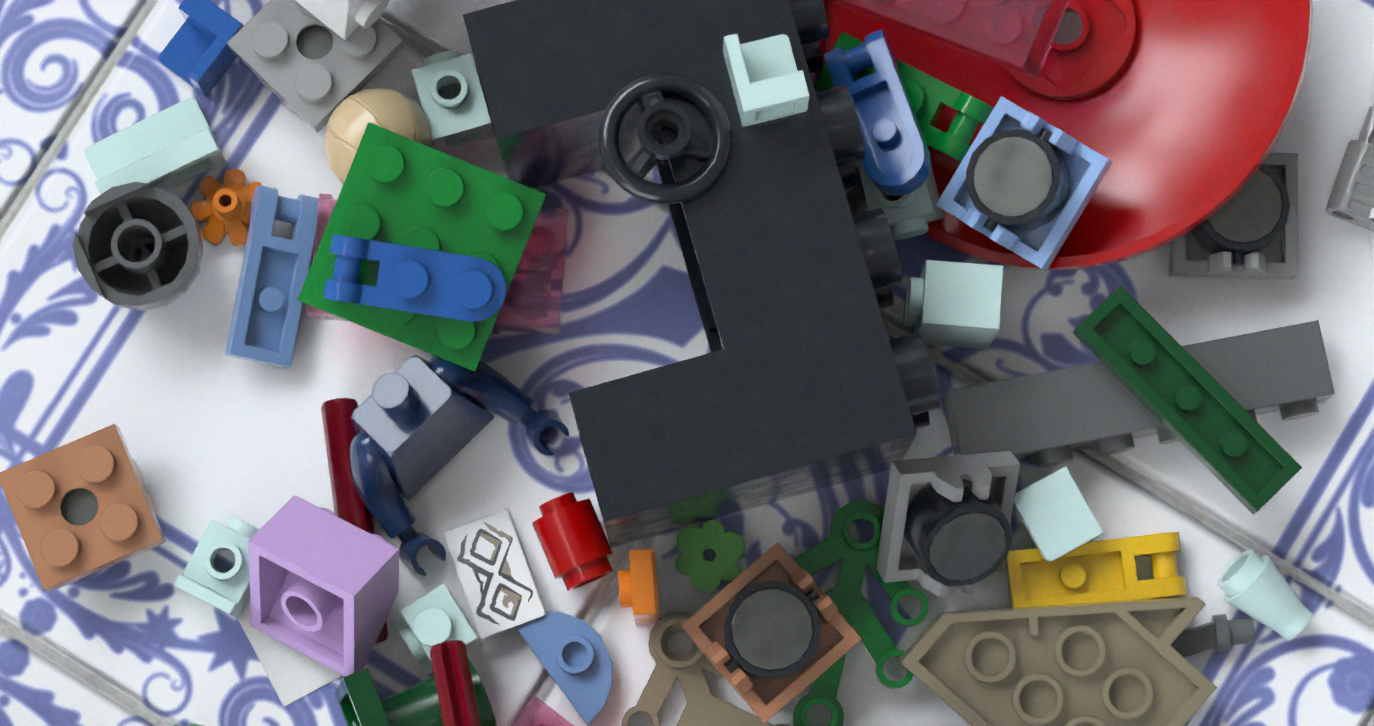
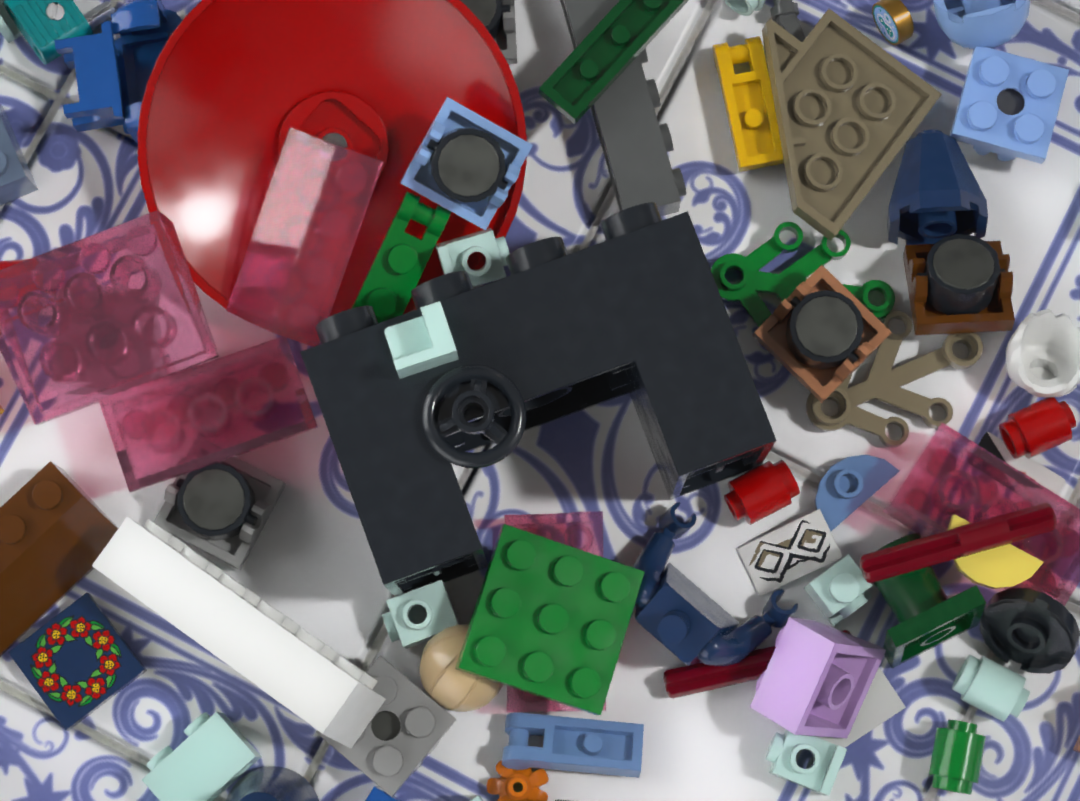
camera: 90 degrees left, 0 degrees up
(417, 280) = (582, 618): blue plate -> none
(639, 586) = (798, 432): orange plate -> none
(694, 542) = (775, 389): bright green plant -> none
(892, 137) = (447, 254): blue plate -> none
(948, 520) = (728, 205): piece -> none
(955, 304) = (559, 207): light aqua brick -> none
(1055, 515) = (709, 133): light aqua panel -> none

